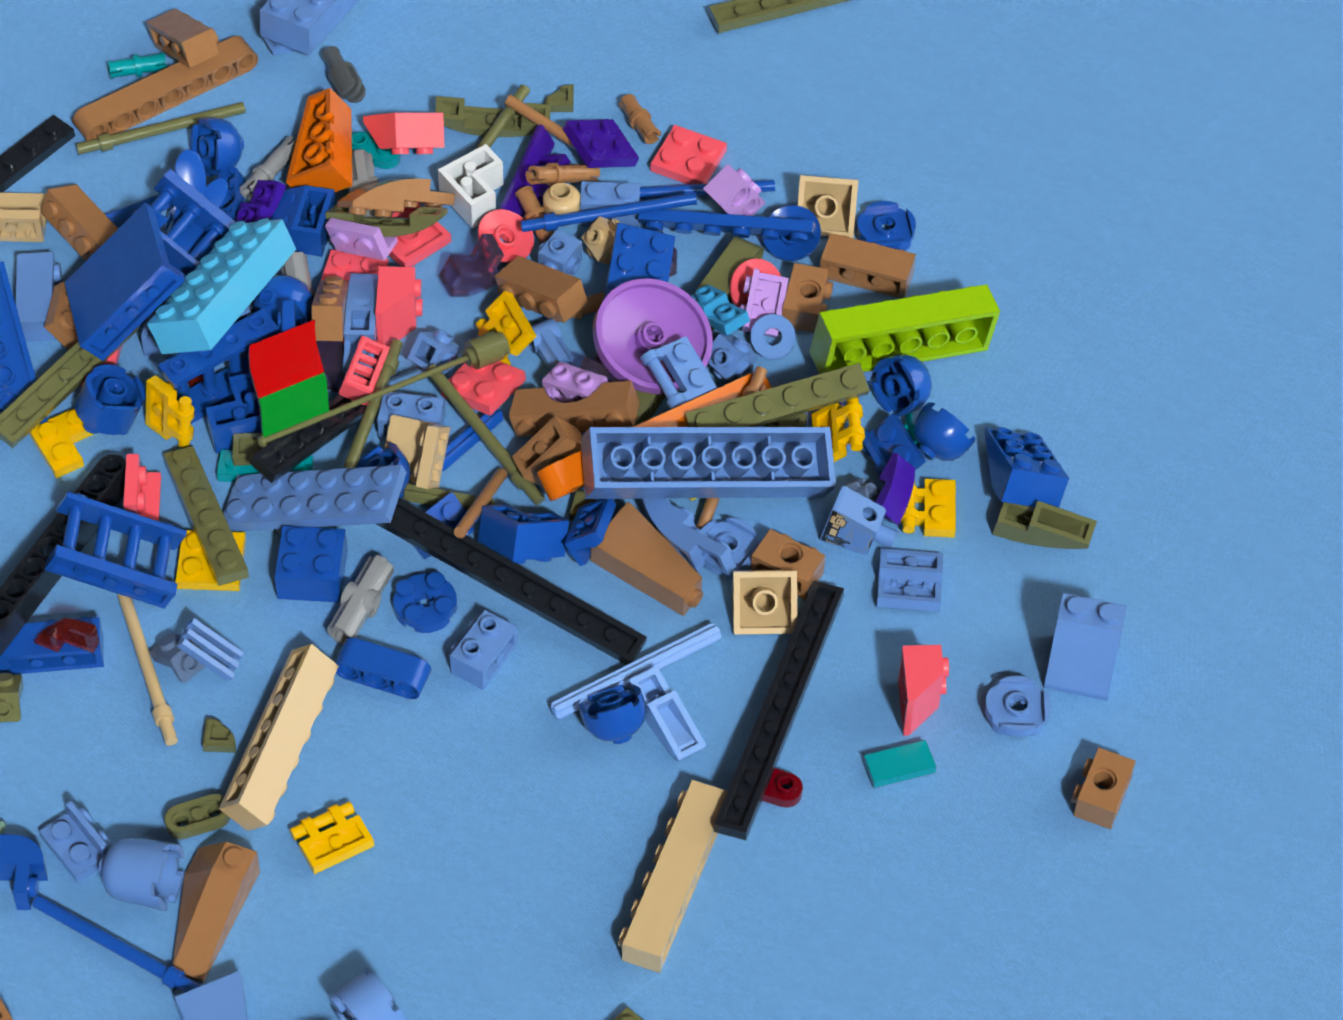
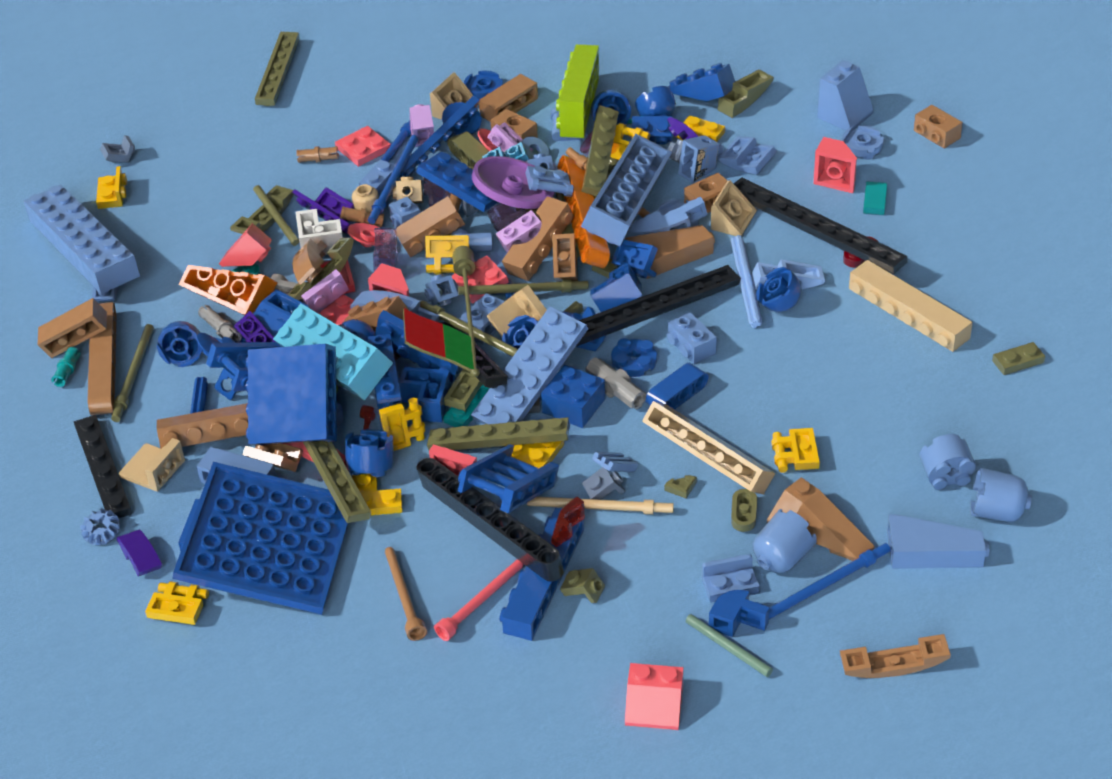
camera: 60 degrees left, 10 degrees down
(343, 76) = (167, 269): dark grey arm -> none
(356, 386) = (442, 314): coral slope -> none
(482, 500) = (584, 301): medium nougat bar -> none
(537, 118) = (299, 187): medium nougat bar -> none
(555, 173) = (344, 195): medium nougat pin -> none
(562, 99) = (269, 182): olive tile -> none
(600, 143) = (326, 173): dark purple plate -> none

